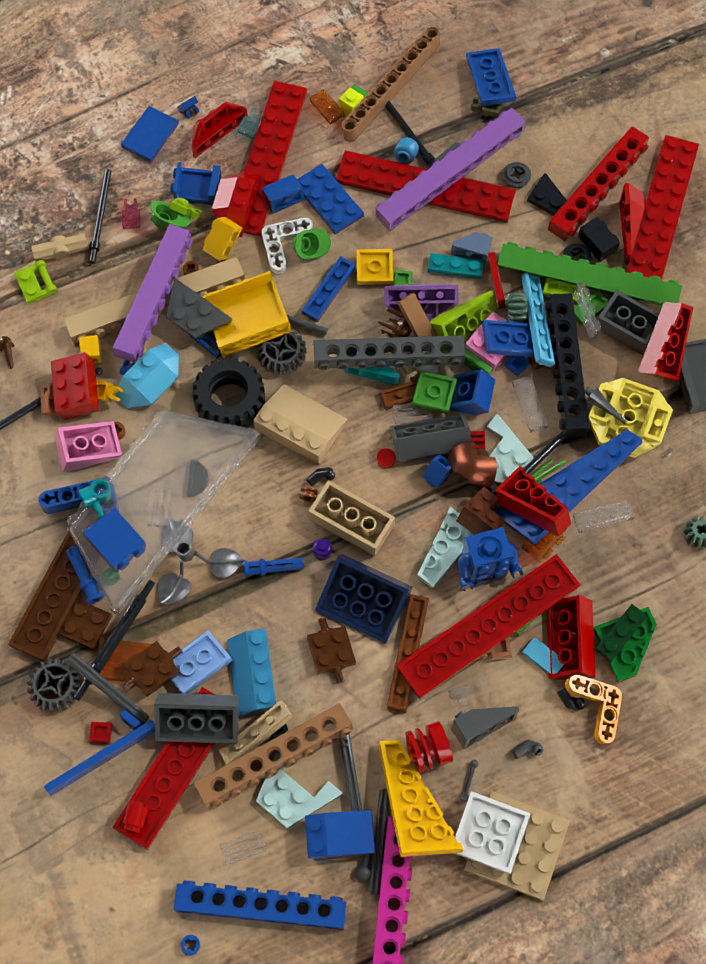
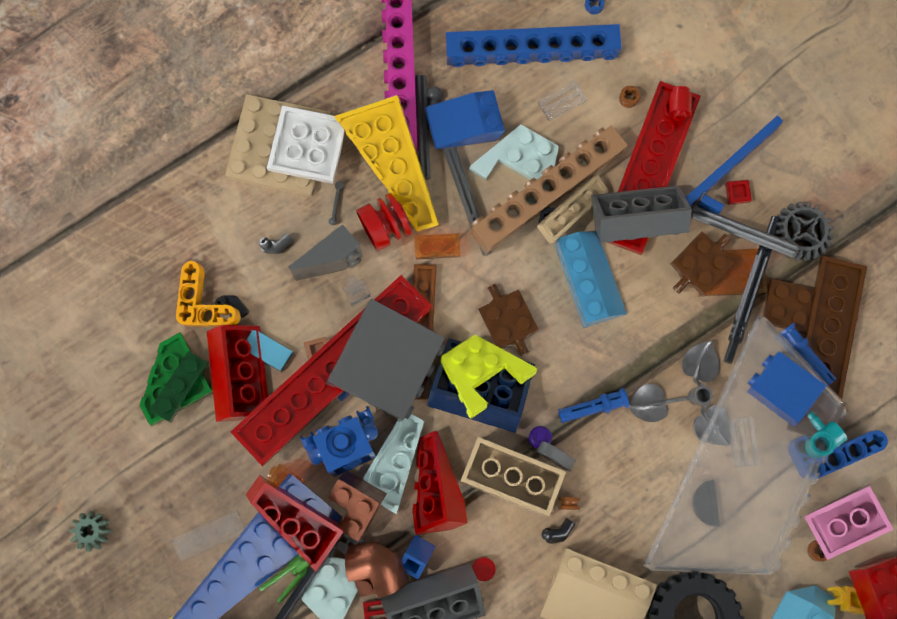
camera: 170 degrees right, 10 degrees up
(176, 847) = (630, 102): none -> dark orange bush
(199, 662) = (651, 281): light blue tile -> none
(312, 529) = (556, 456): none -> dark grey beam
(369, 611) = (475, 363): none -> neon yellow wing
(383, 723) = (437, 246): none -> clear orange plate
(414, 515) = (438, 495): none -> red wedge
(444, 621) = (386, 360): none -> dark grey panel

